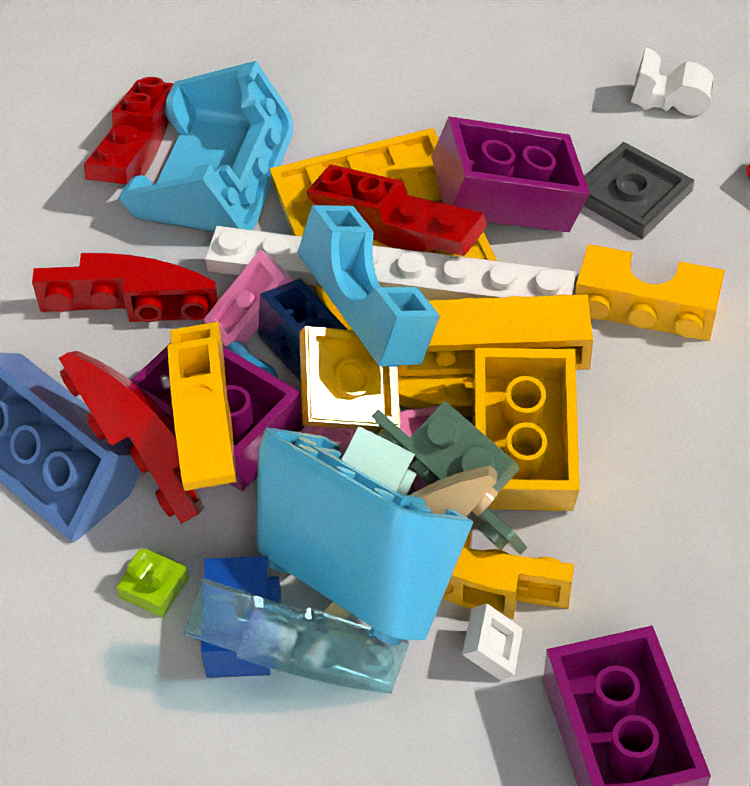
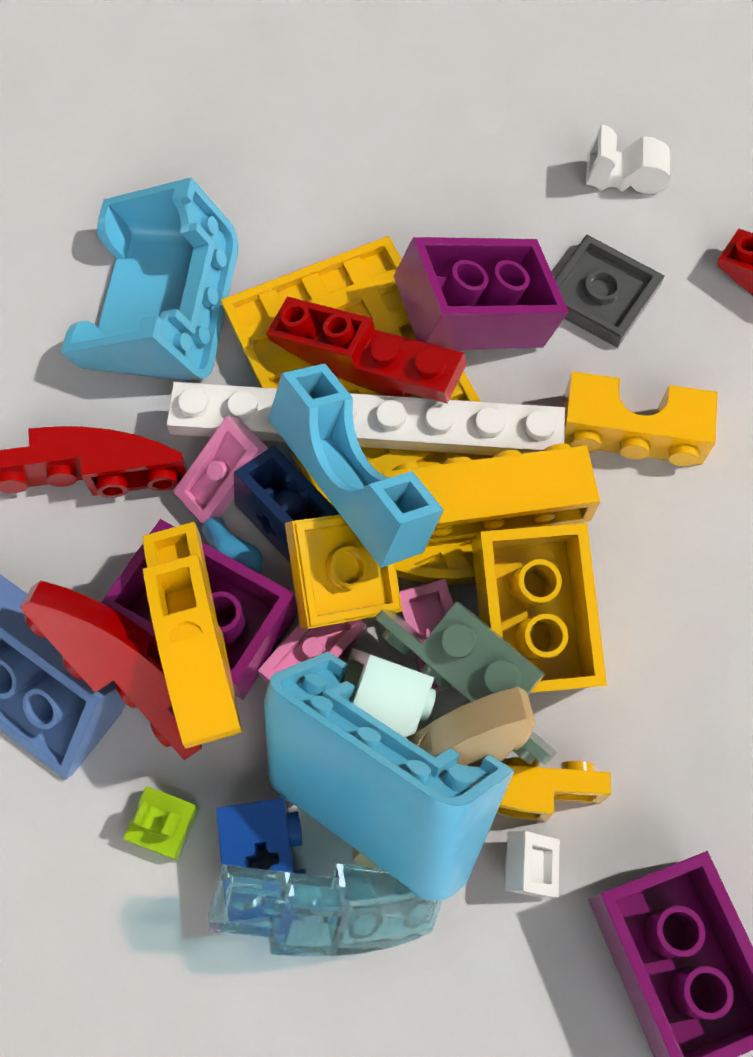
camera: 10 degrees left, 15 degrees up
(135, 134) = (67, 270): red slope -> none

